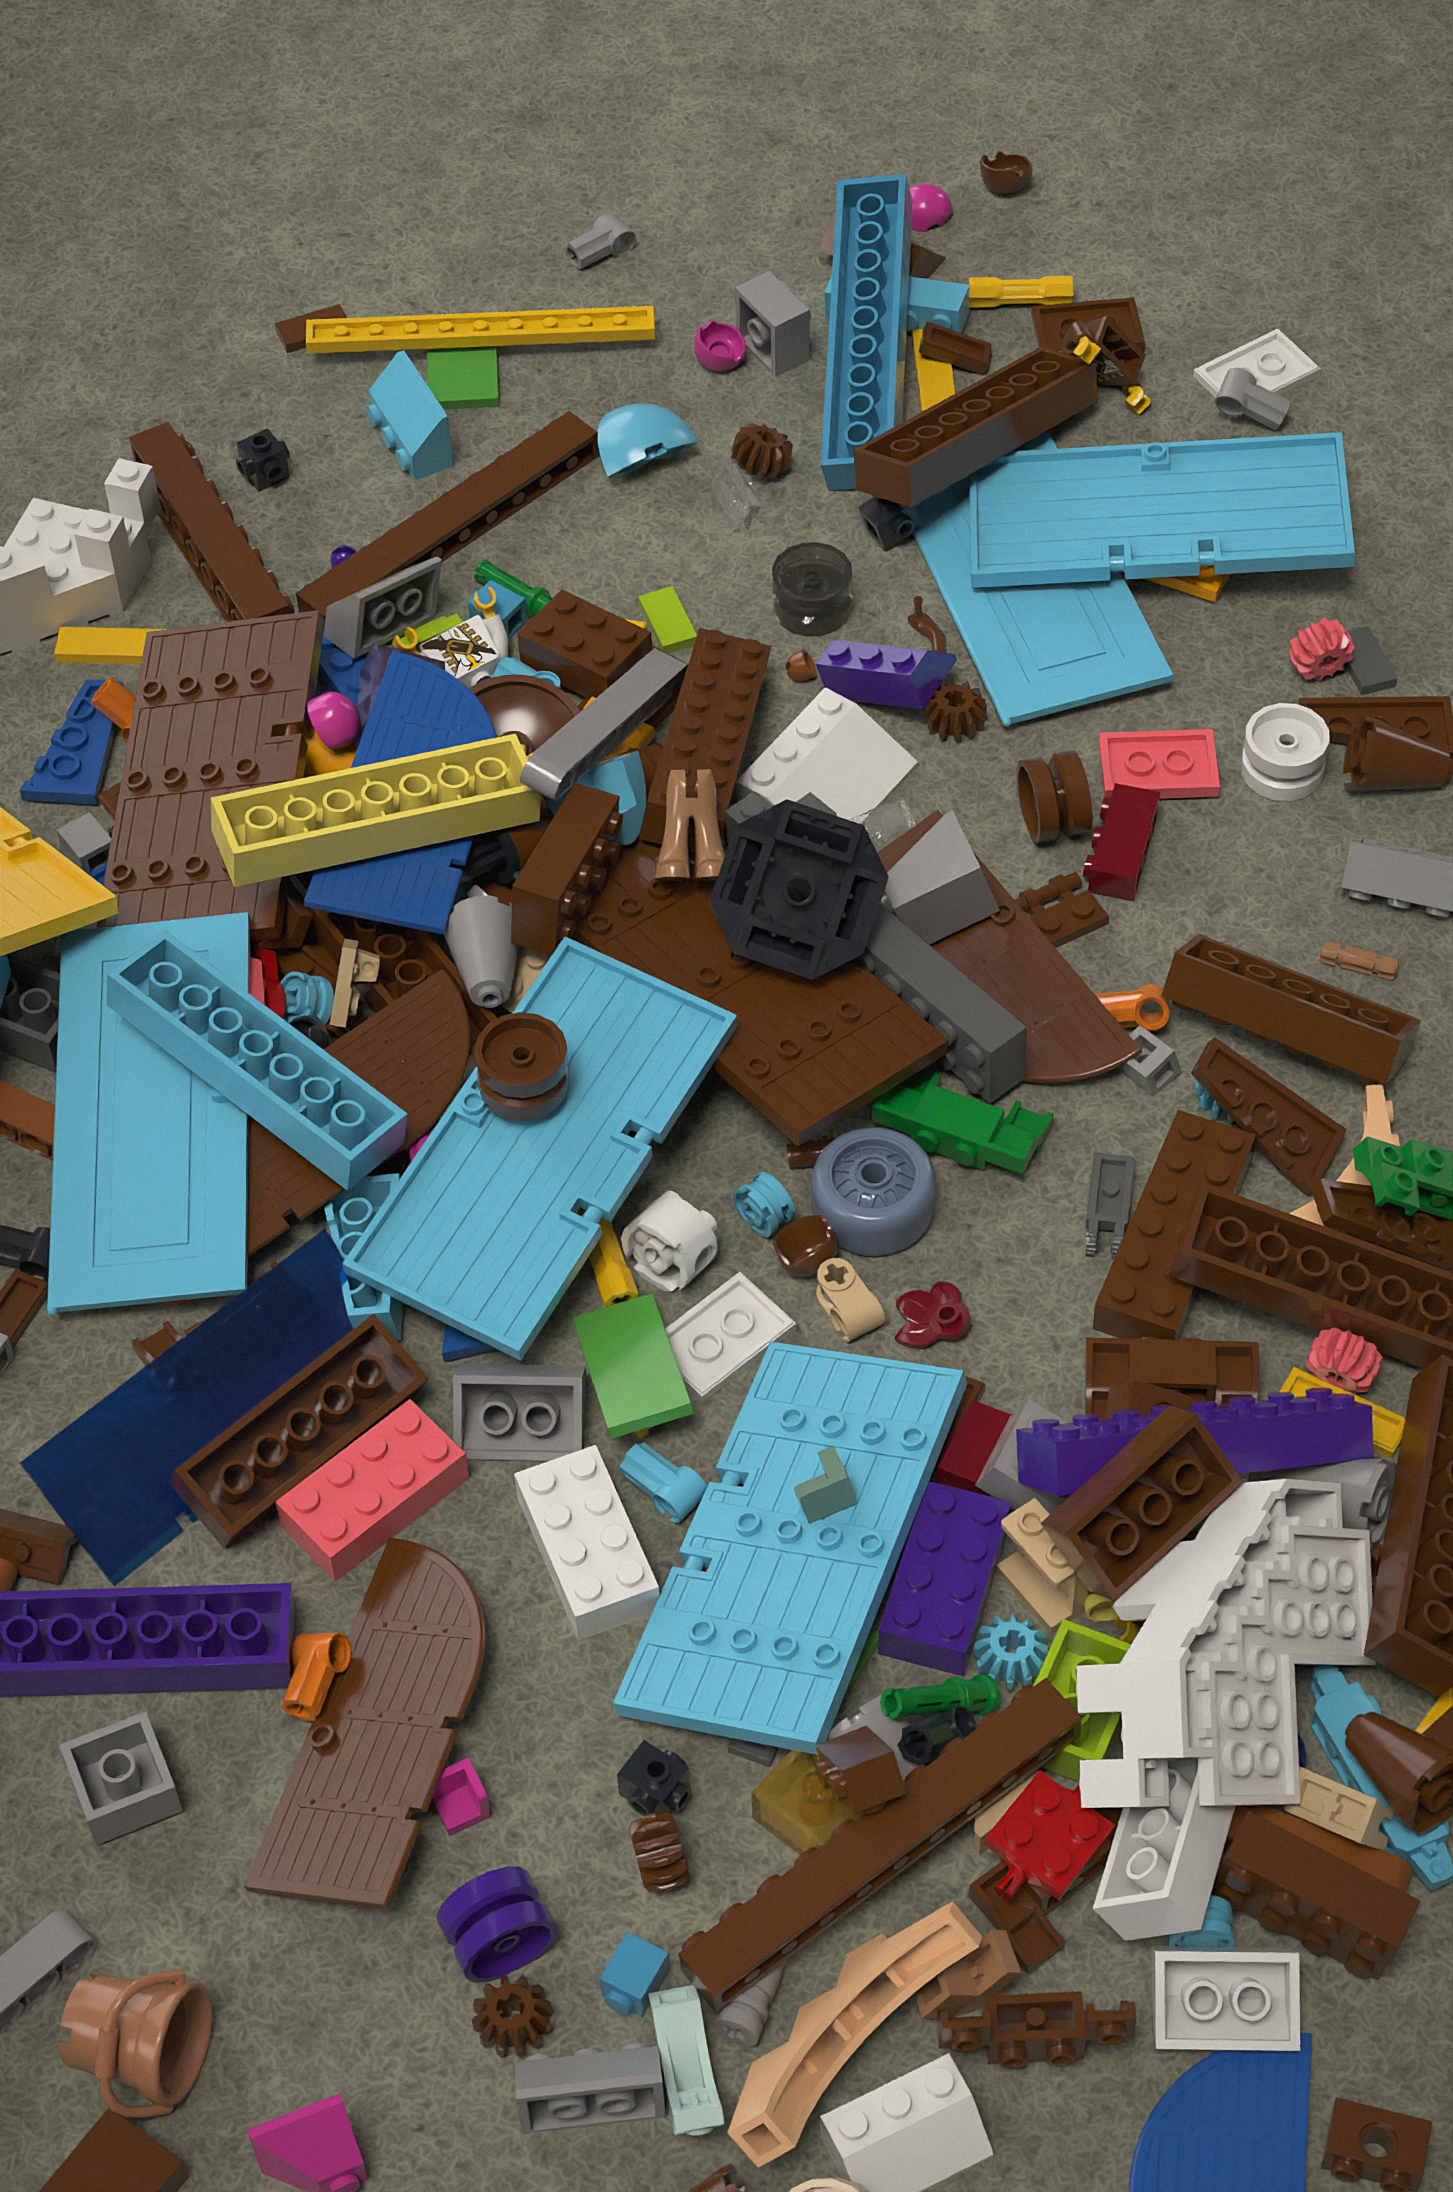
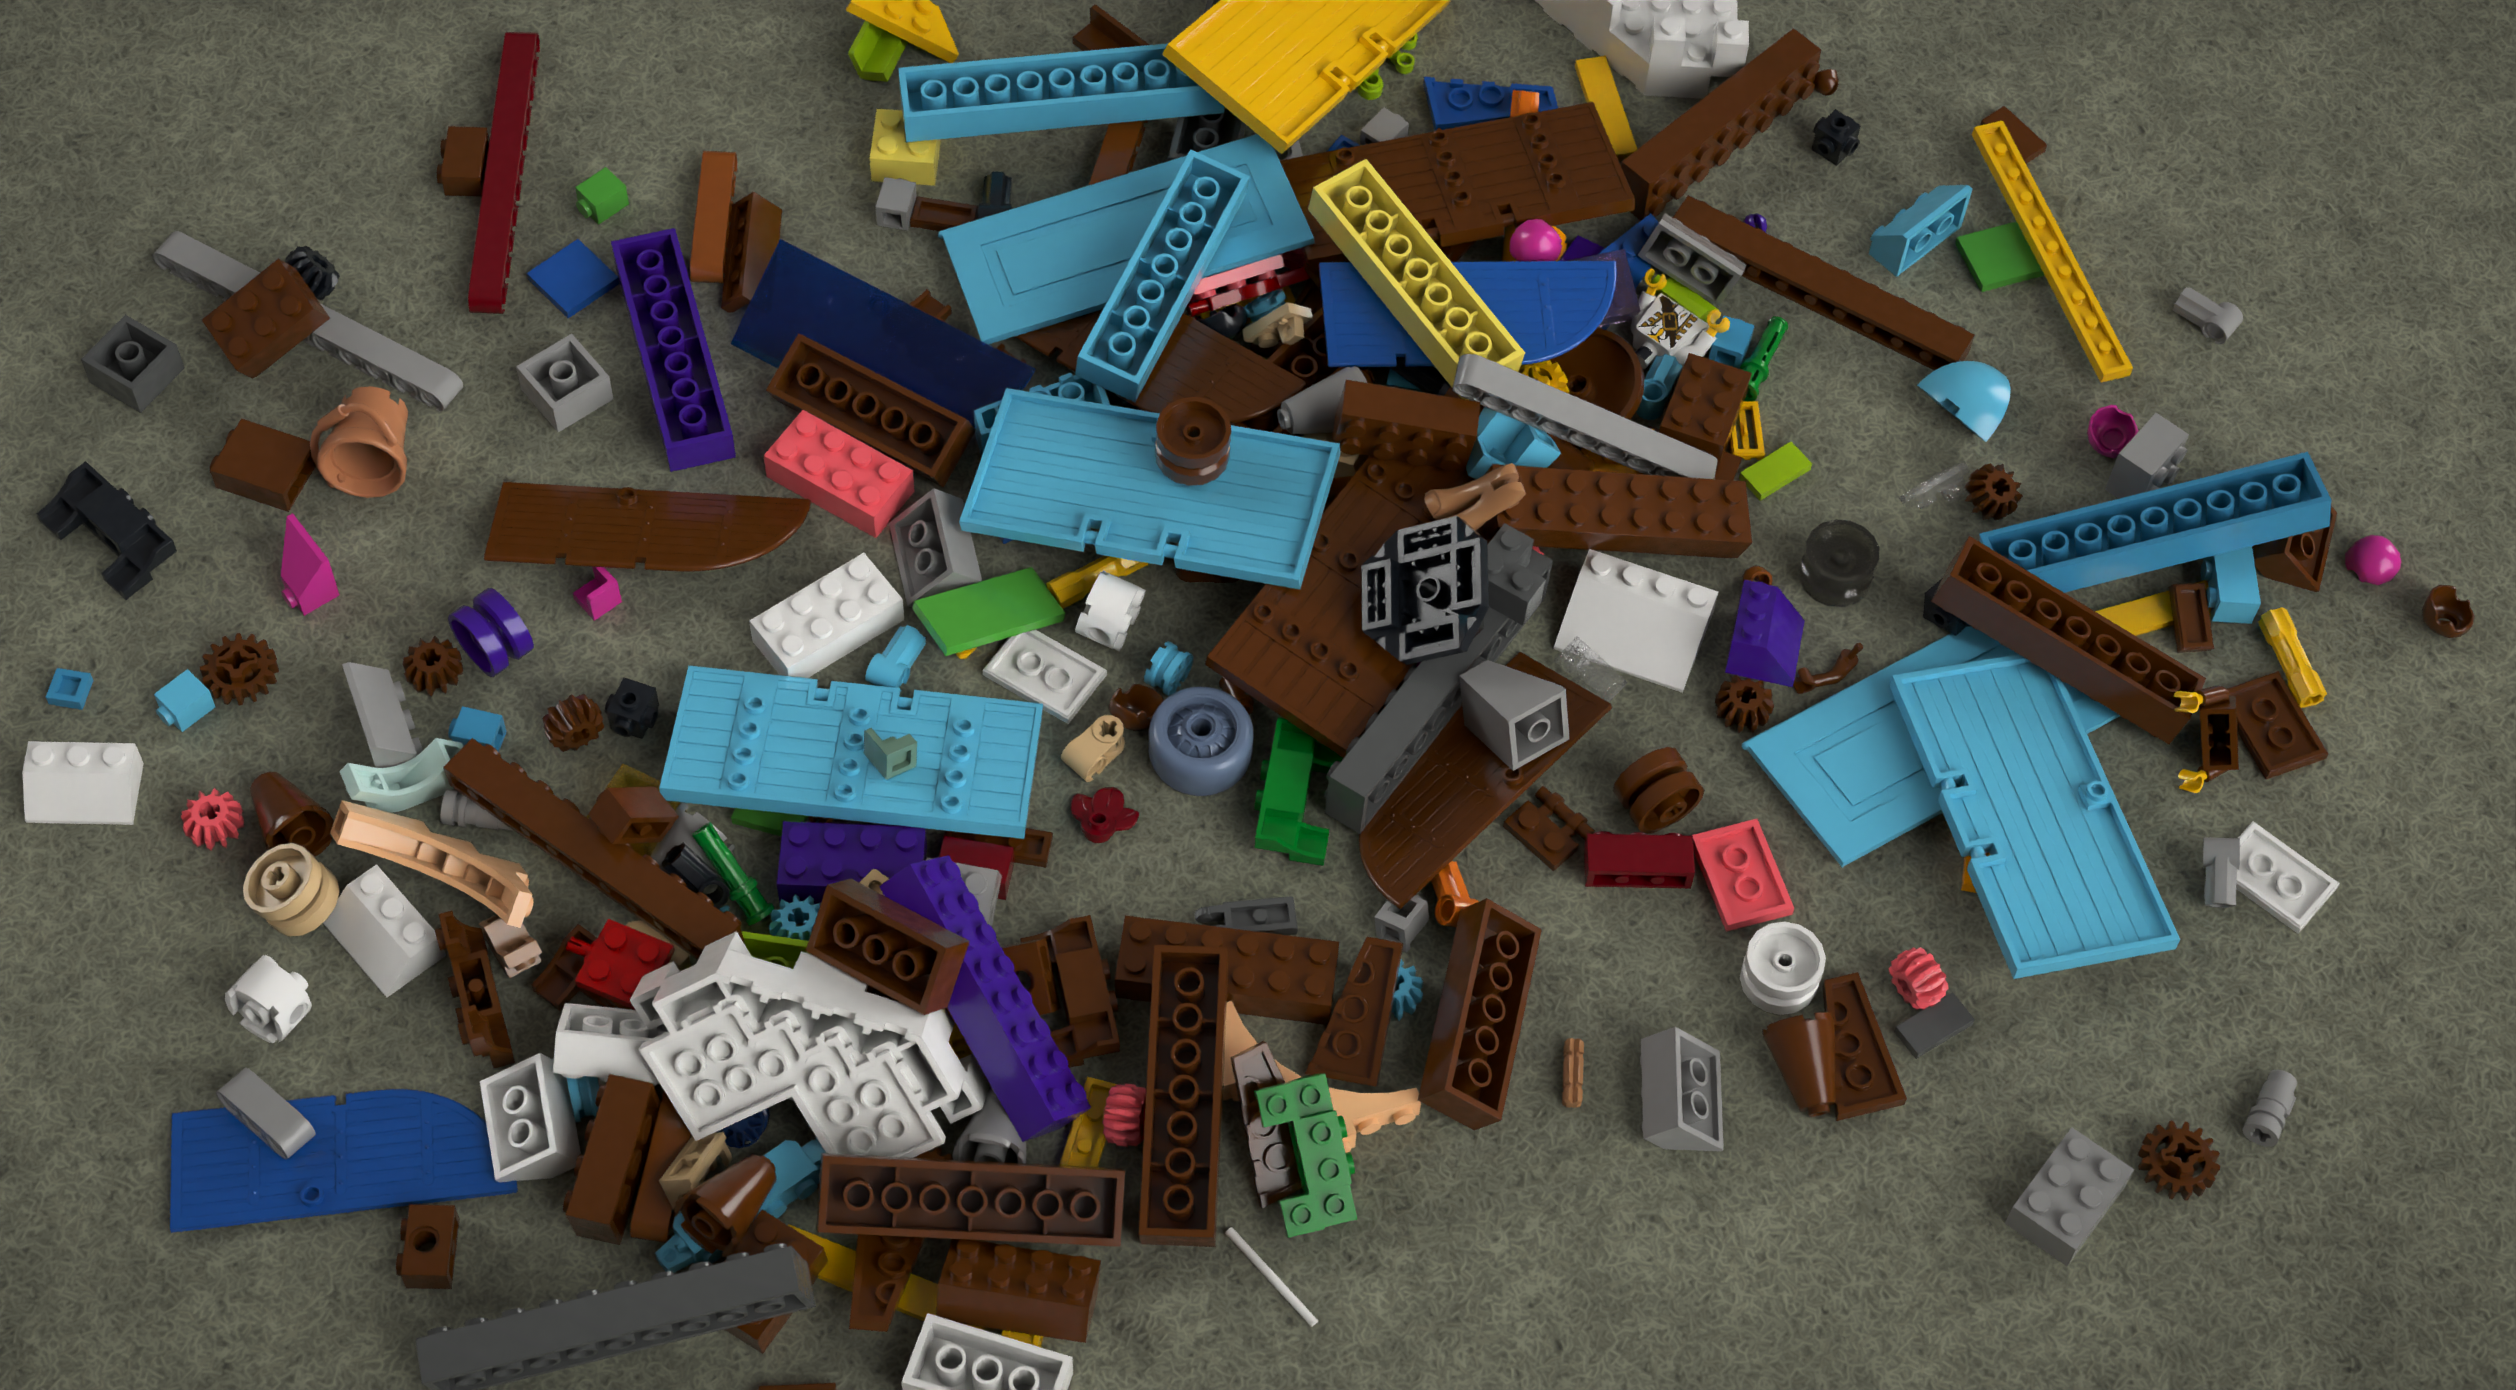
camera: 70 degrees right, 5 degrees up
(315, 1662) = (674, 476): orange piece -> none

